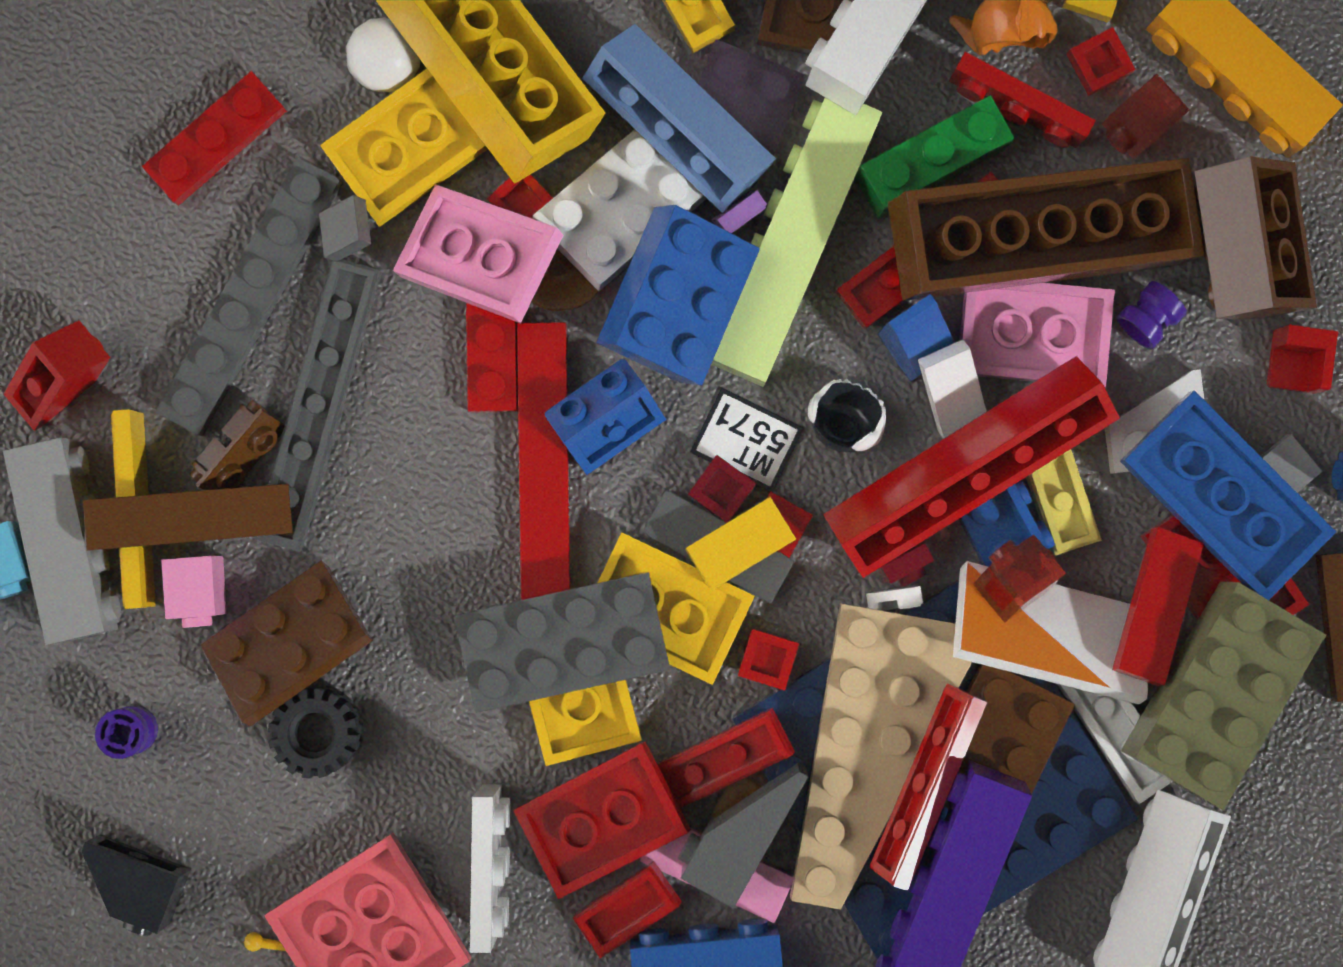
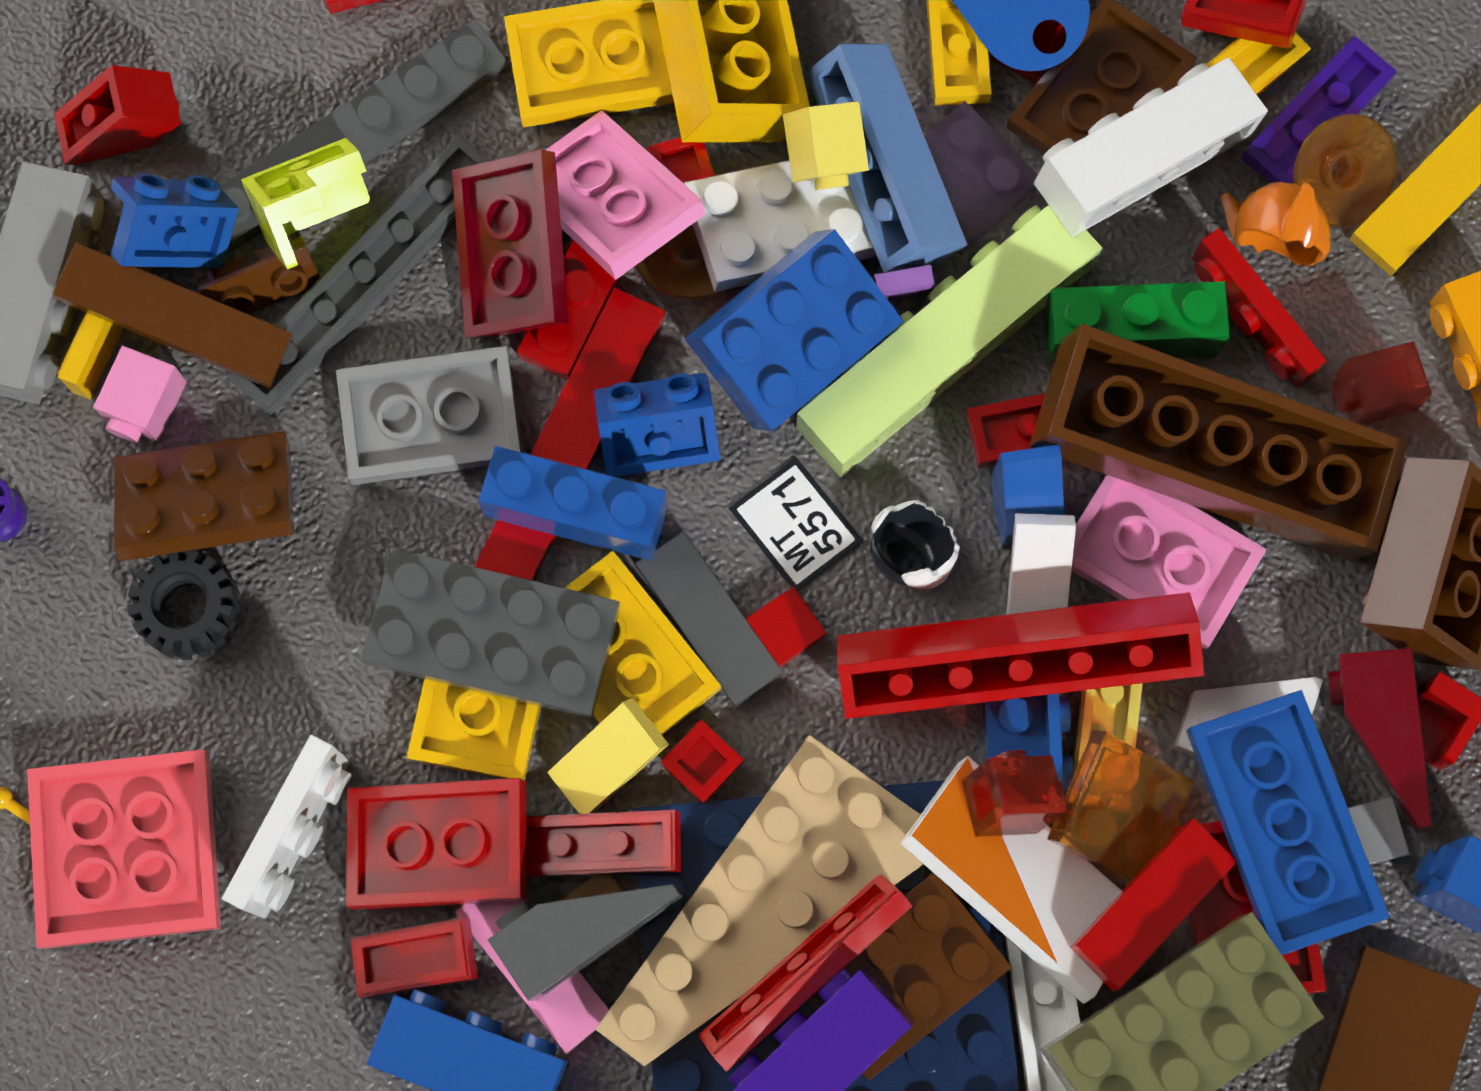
camera: 30 degrees right, 10 degrees down
(148, 443) = (172, 222): none -> blue bracket
(237, 367) = (306, 193): none -> neon yellow panel
(344, 228) = (485, 108): dark grey tile -> none
(422, 332) = (510, 245): none -> dark red plate
(425, 494) = (427, 414): none -> light grey plate
(574, 513) = (573, 503): none -> blue brick
(631, 134) = (826, 144): none -> light yellow brick
(698, 692) = (608, 757): none -> light yellow tile
(722, 488) = (742, 558): dark red plate -> none
(740, 544) = (732, 622): yellow tile -> none
(895, 598) = (874, 764): white tile -> none
(907, 566) = (900, 732): dark red plate -> none
(1097, 542) = (1120, 806): none -> clear orange plate
(1100, 61) = (1363, 309): red plate -> none
(1152, 314) = (1297, 595): dark purple wheel -> none
(1259, 375) = (1384, 718): none -> dark red slope

